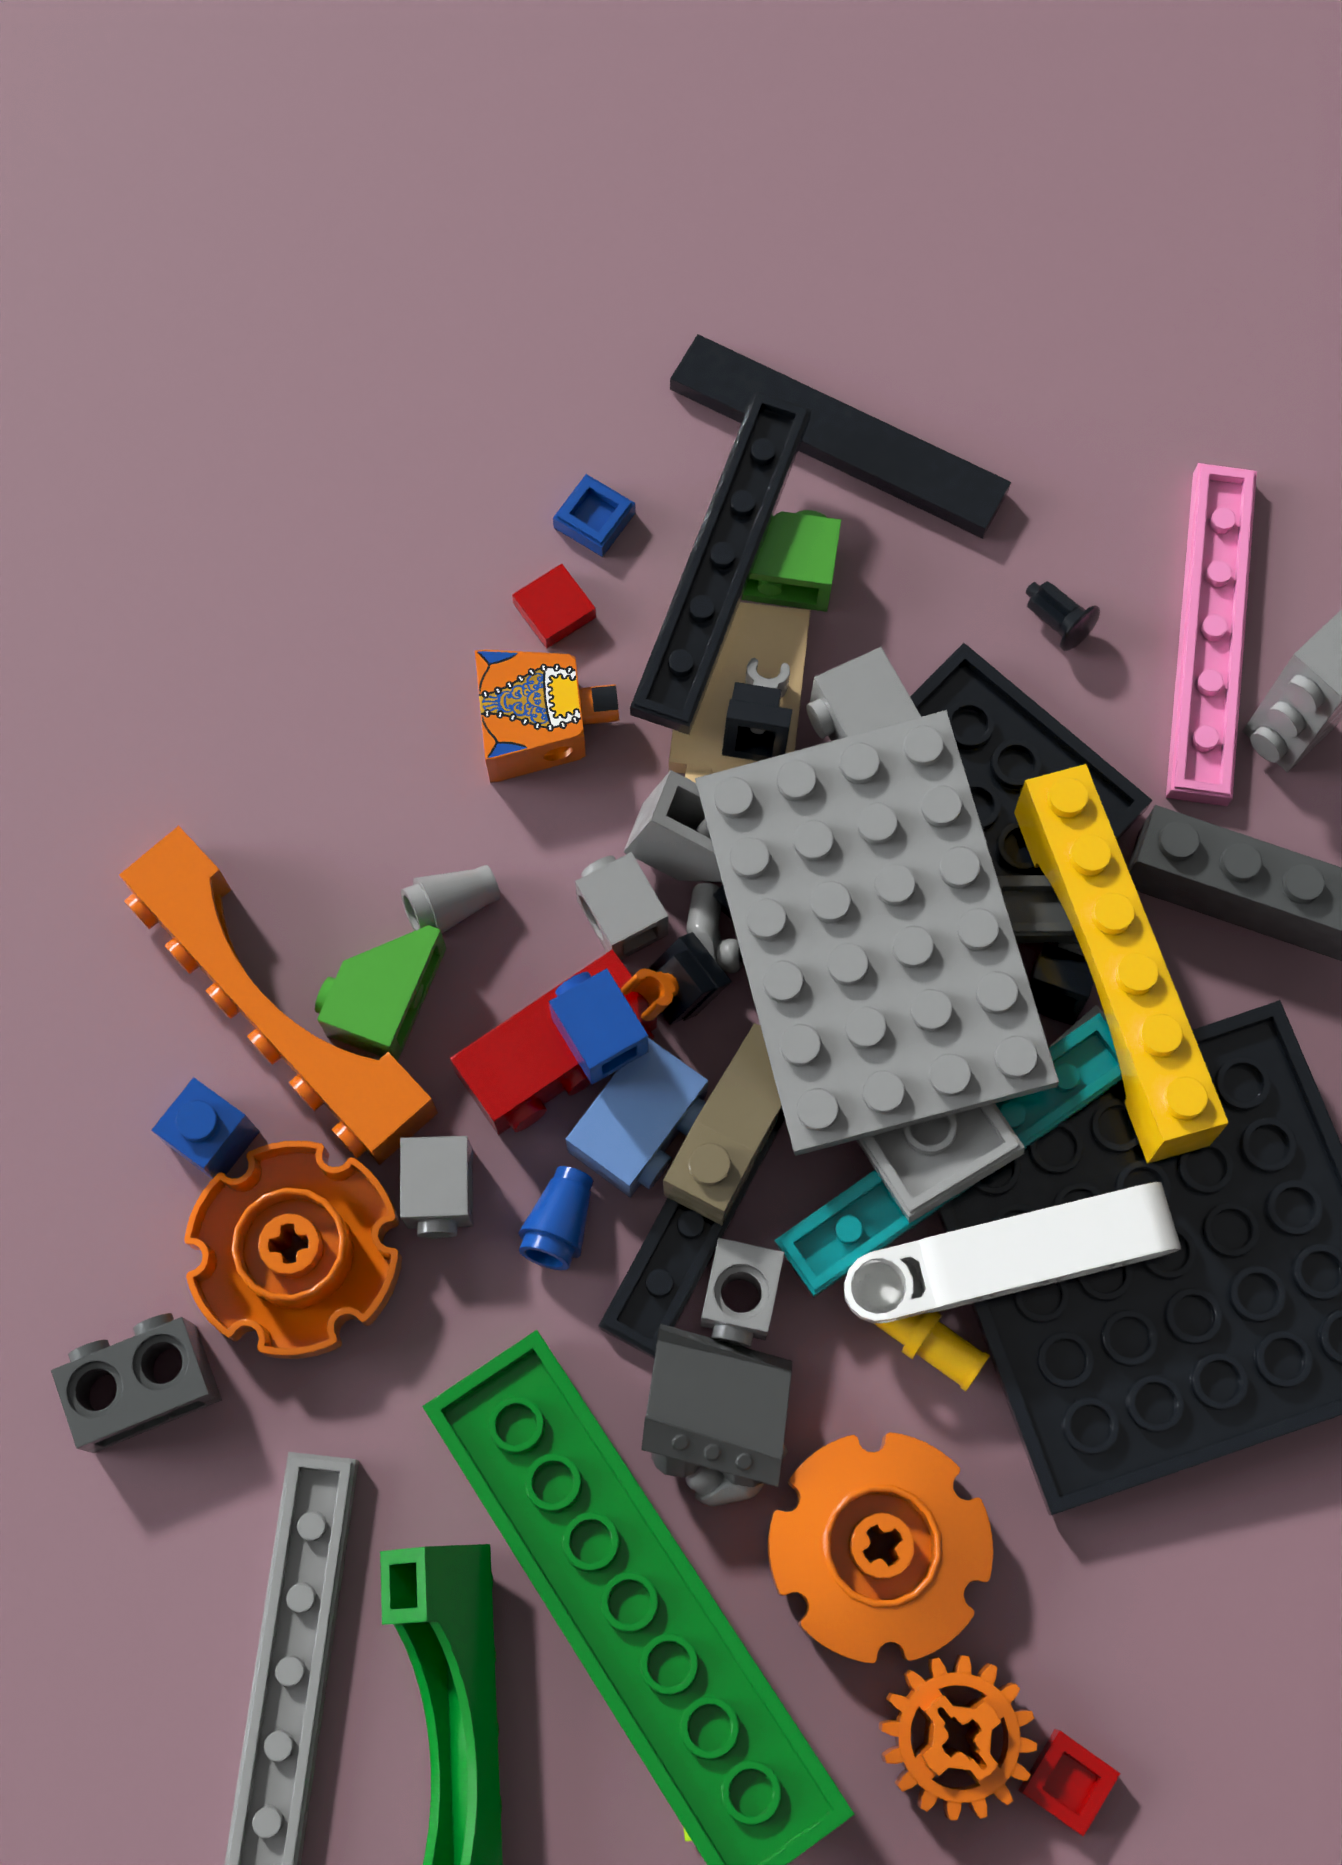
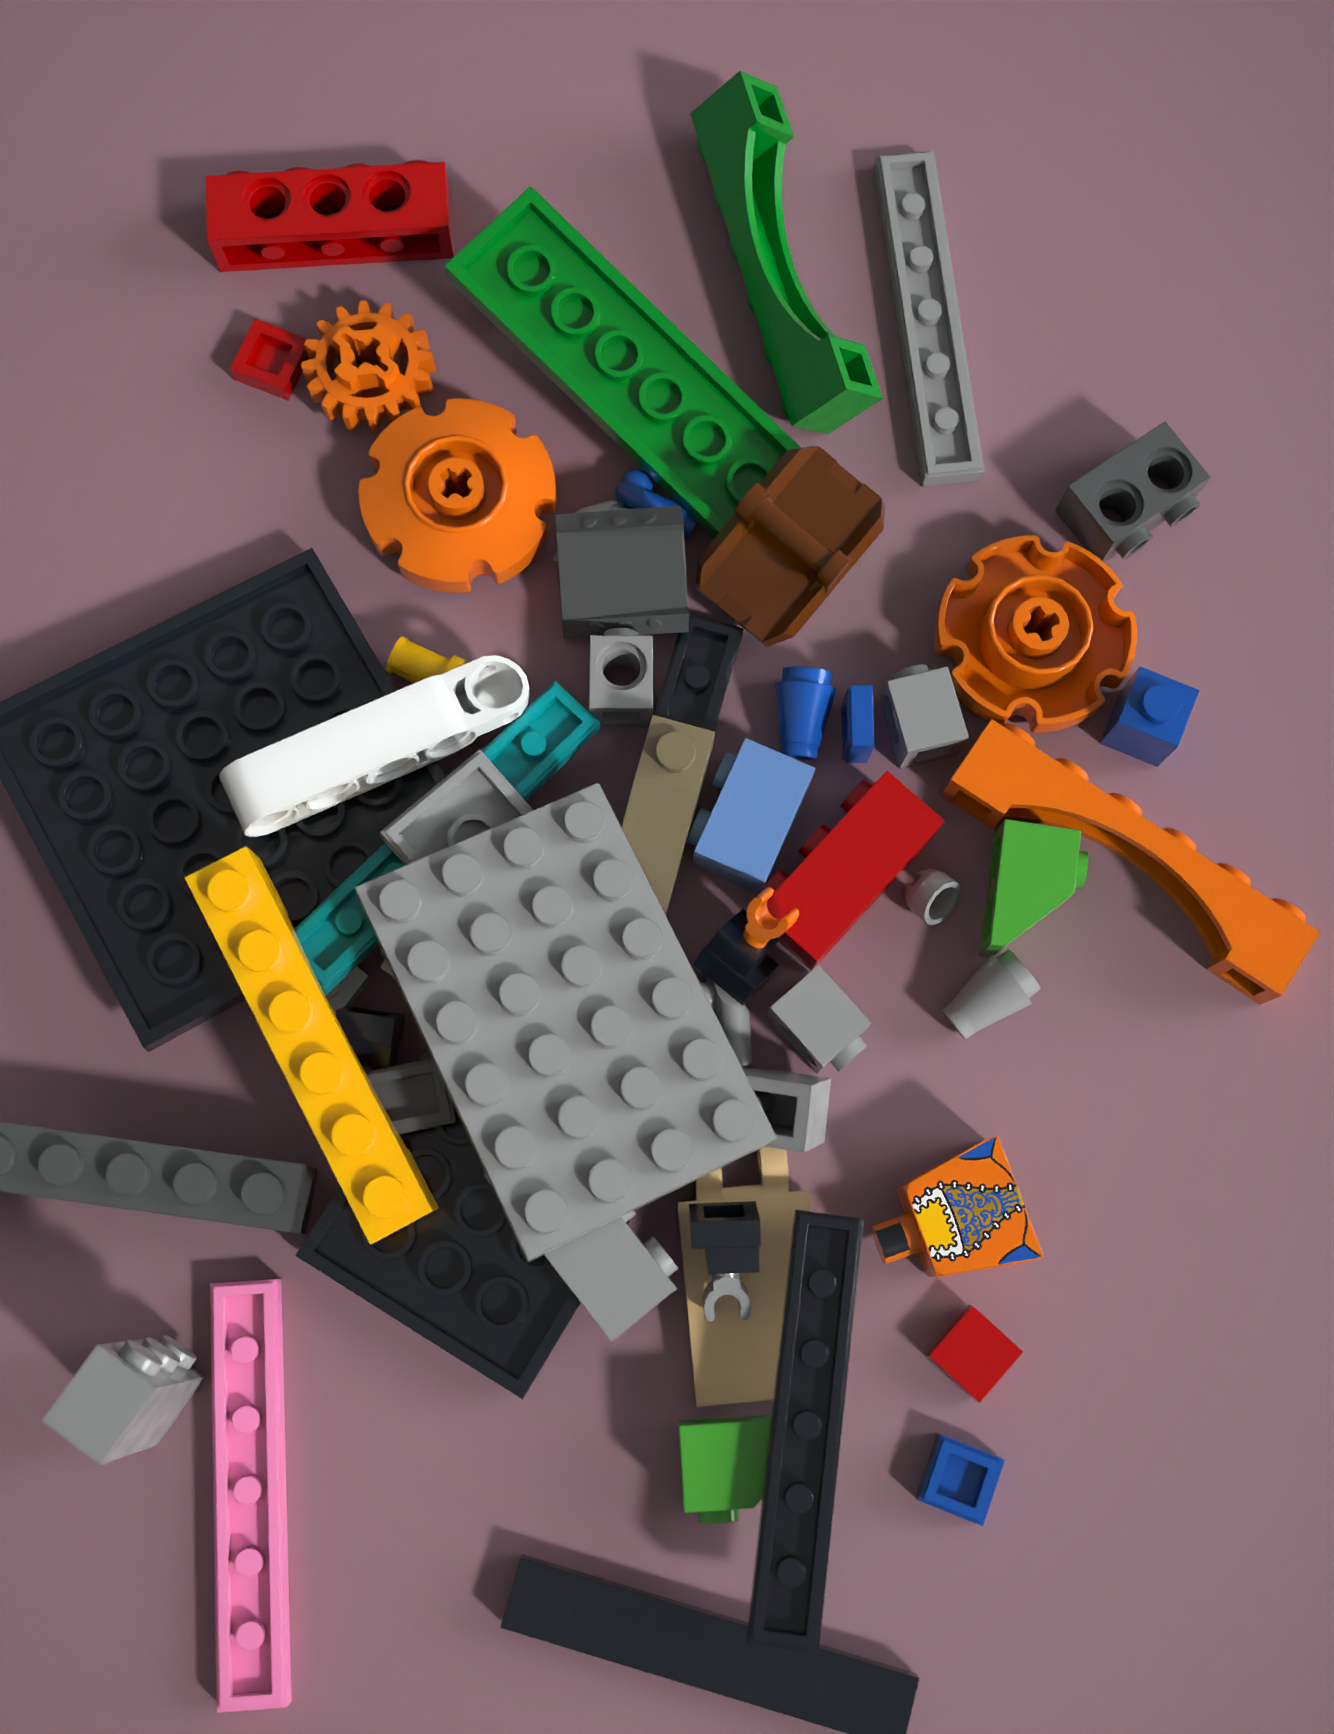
camera: 165 degrees right, 5 degrees up
(477, 1004) = (932, 895): none -> light grey hinge
(506, 1190) = (857, 724): none -> blue tile
(526, 1393) = (789, 544): none -> reddish brown shield
(598, 1024) = (813, 866): blue brick -> none
(682, 1505) = (636, 493): none -> blue arm
(1062, 613) = (421, 1468): black piece -> none

